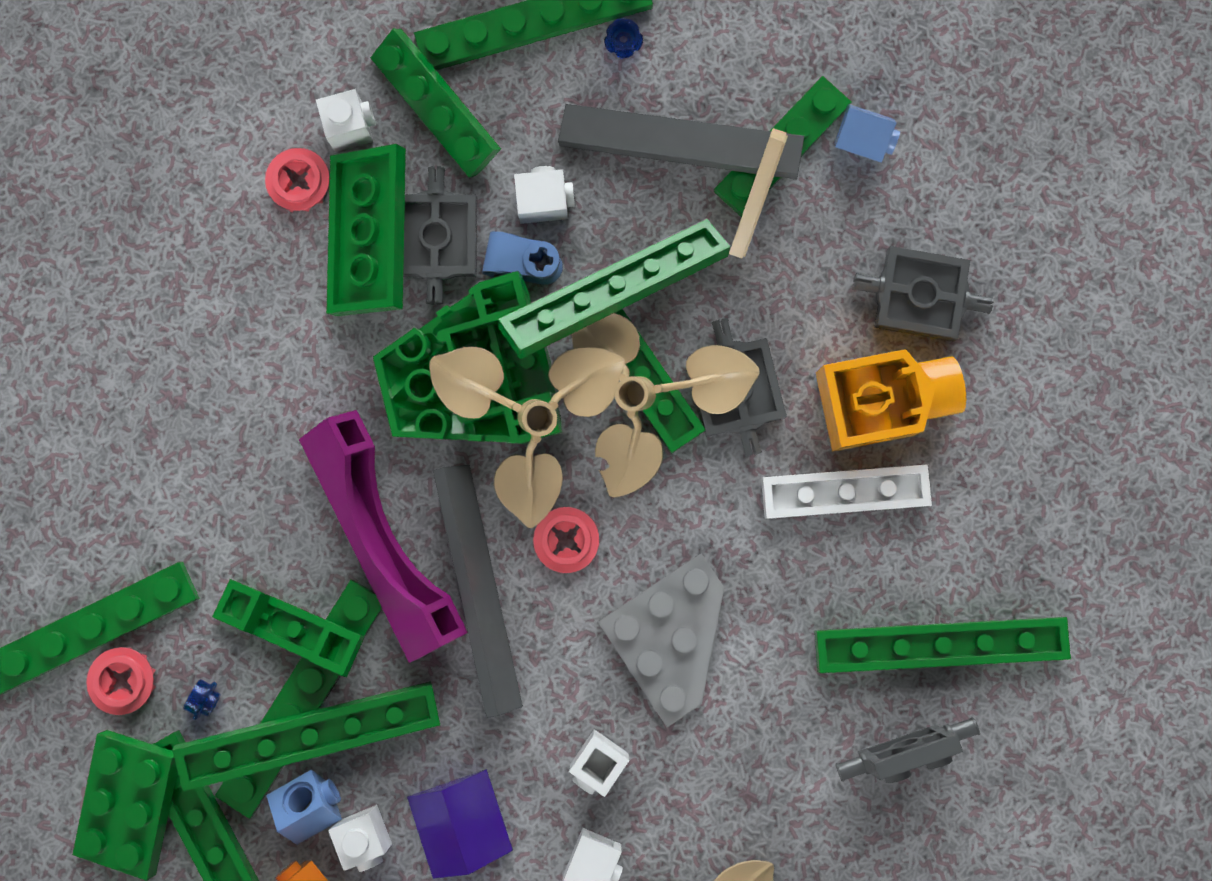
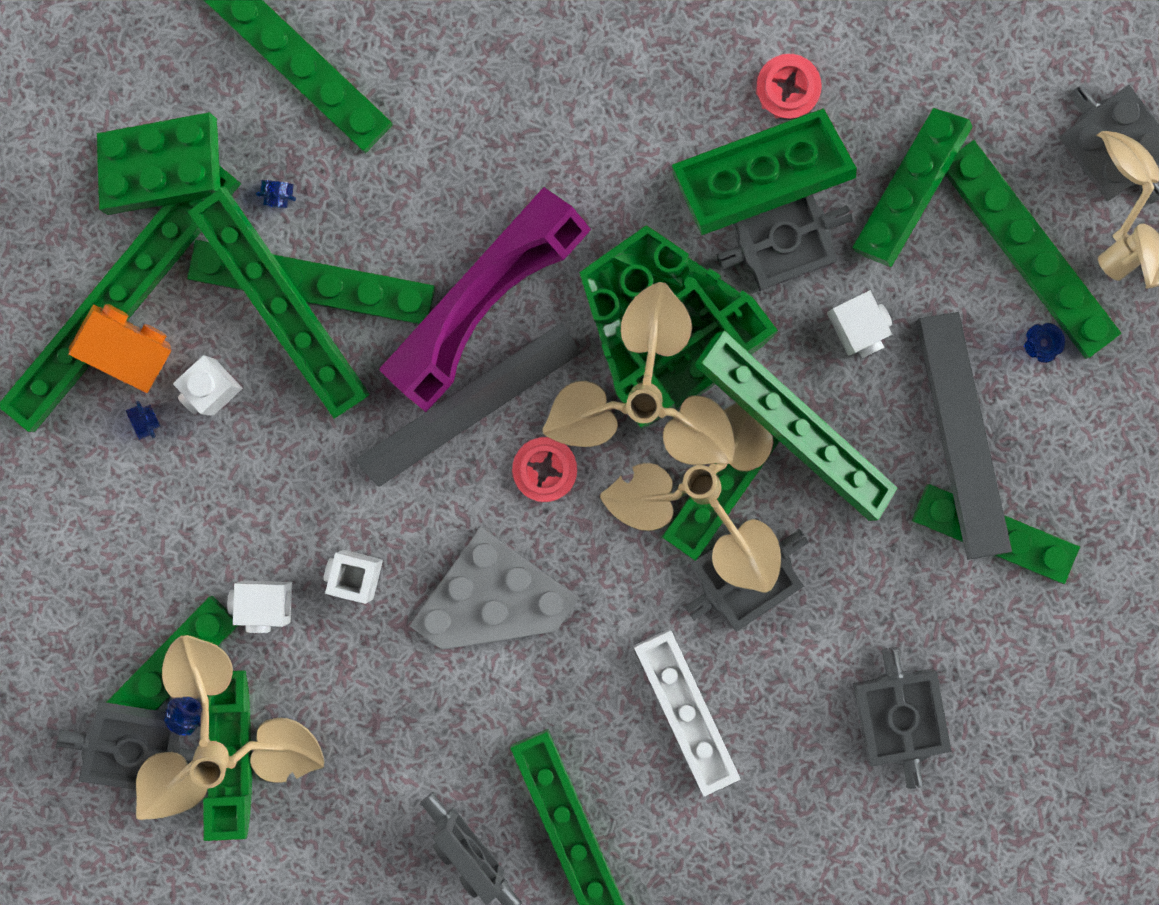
camera: 70 degrees right, 5 degrees up
(101, 681) = (257, 96): coral gear -> none
(289, 627) = (369, 247): green slope -> none
(289, 805) = (211, 310): medium blue brick -> none
(346, 120) = (863, 110): white brick -> none
(460, 825) = (252, 471): dark purple slope -> none
(513, 253) = (793, 319): medium blue piece -> none
(758, 193) = (938, 528): tan tile -> none
(867, 133) = (1037, 610): medium blue brick -> none
(887, 397) = (784, 703): light orange brick -> none

